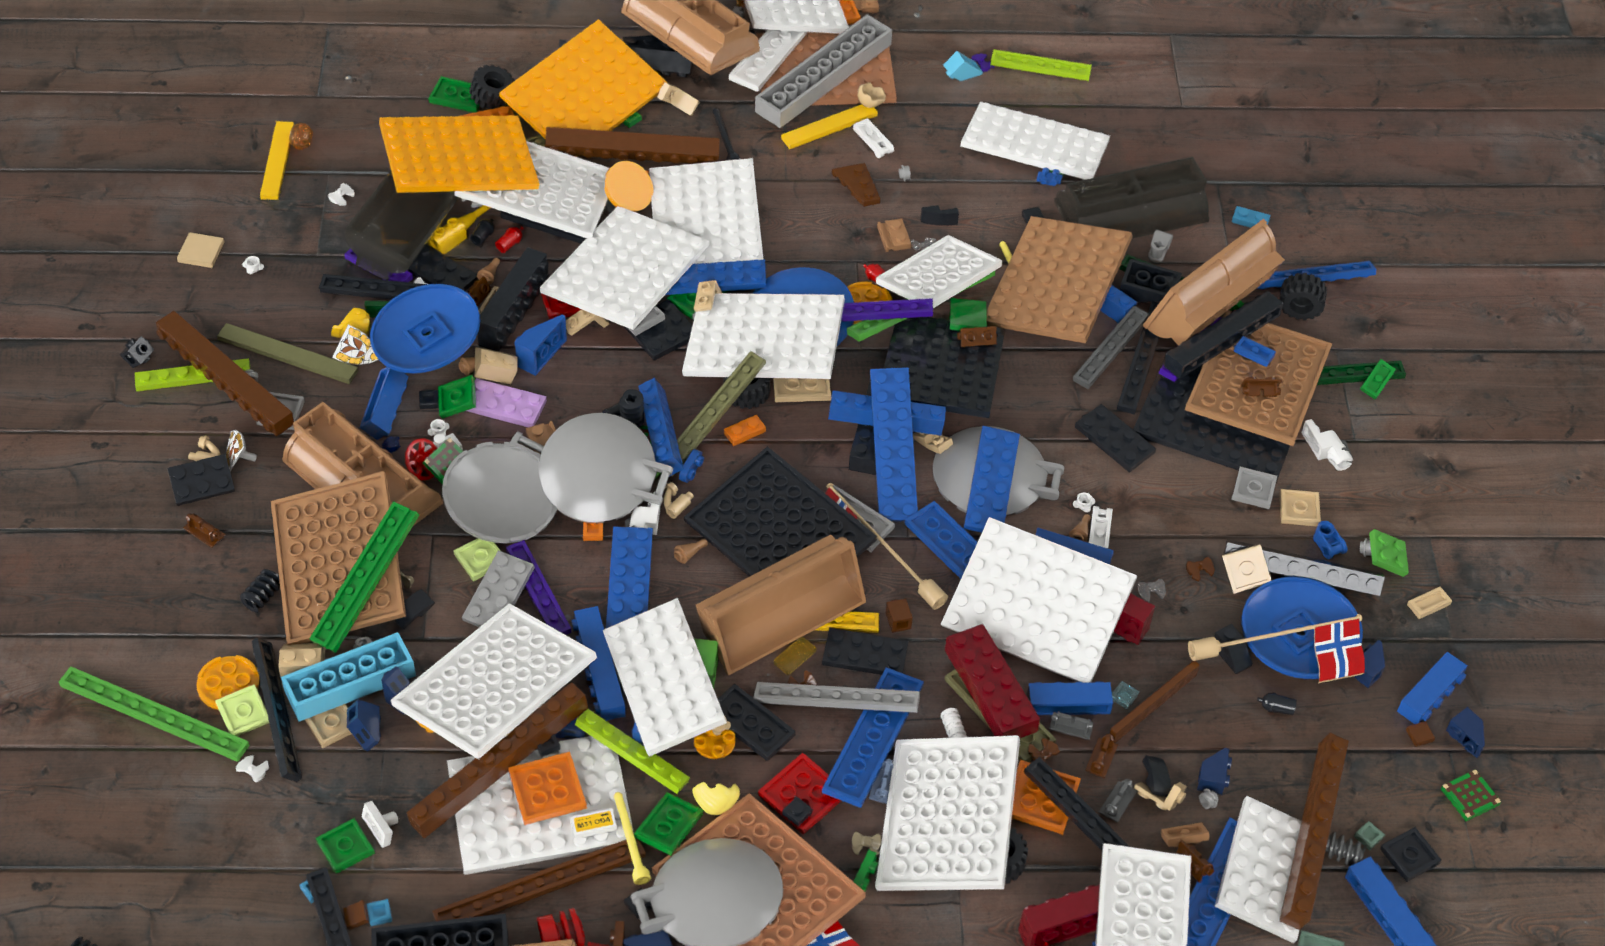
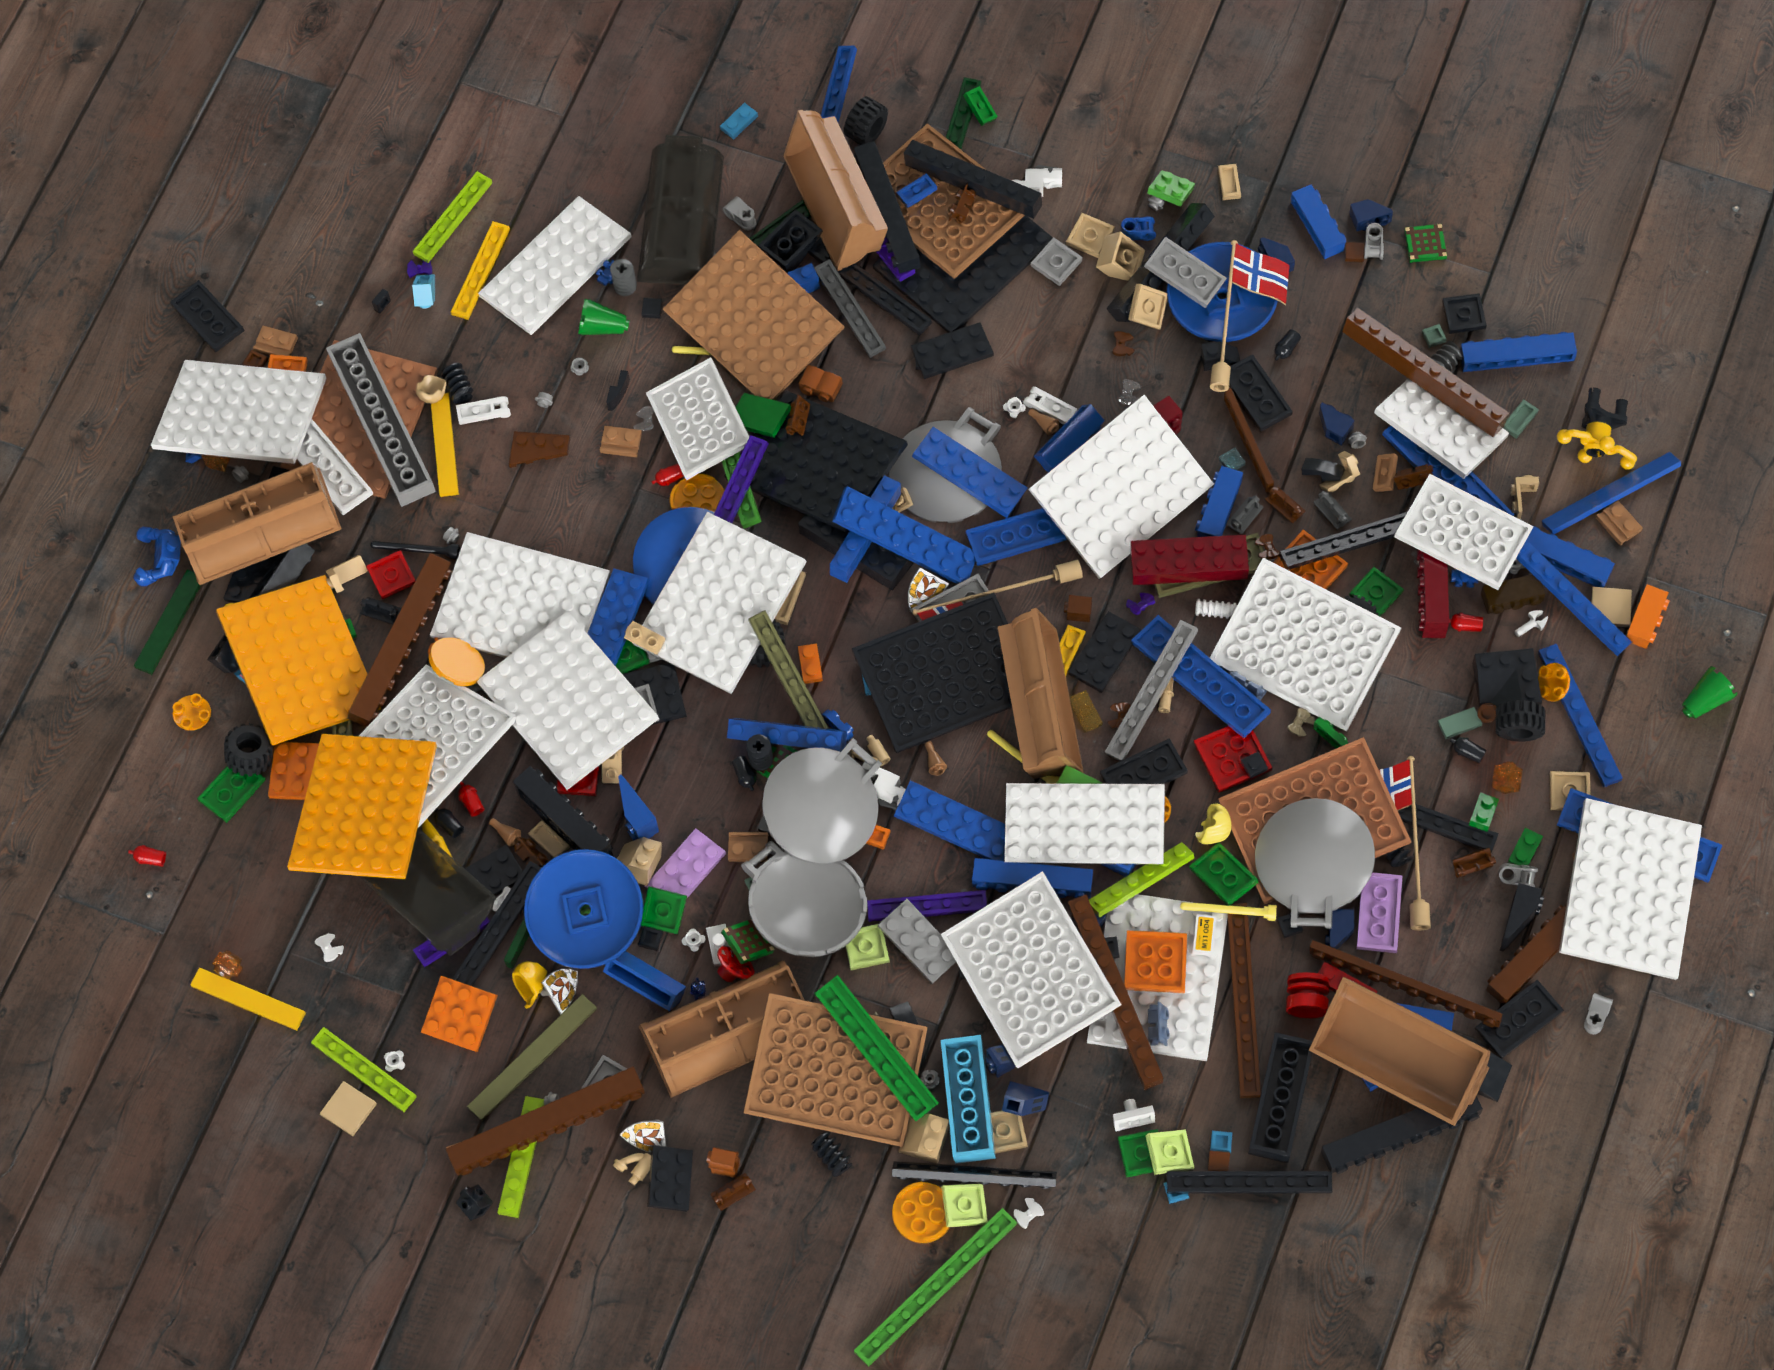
camera: 60 degrees left, 15 degrees up
(224, 509) = (723, 1162): none -> dark orange brick
(237, 248) = (363, 1069): none -> lime plate
(308, 290) = (459, 1013): none -> orange plate
(351, 867) = (1169, 1151): none -> yellowish green tile
(378, 63) = (148, 855): none -> red piece
(481, 813) = (1158, 1015): none -> sand blue hinge
(514, 50) = (191, 712): none -> light orange dish
(583, 14) = (168, 623): none -> dark green tile
(657, 126) = (379, 610): none -> black hinge
(692, 125) = (391, 574): none -> red plate
(747, 152) = (451, 535): none -> light grey plate
(842, 716) = (1165, 699): none -> tan axle
(858, 484) = (924, 587): none -> shield
(888, 112) = (457, 383): none -> black piece
(923, 662) = (1136, 608): none -> dark purple piece
(937, 45) = (381, 301): none -> black tile
(949, 185) = (579, 362): none -> light grey plate
(997, 180) = (601, 320): none -> green cone
(1003, 98) = (480, 270): none -> yellow tile
(1024, 350) = (820, 384): none -> dark orange brick
(1046, 182) = (623, 277): none -> dark grey piece
(1047, 870) = (1377, 589): none -> green tile
(1210, 694) = (1258, 393): none -> black plate
(1290, 534) = (1119, 256): none -> tan slope
(1291, 387) = (983, 182): none -> black brick
(1298, 582) = (1185, 272): none -> light grey plate
(1437, 745) = (1374, 244): none -> light grey piece

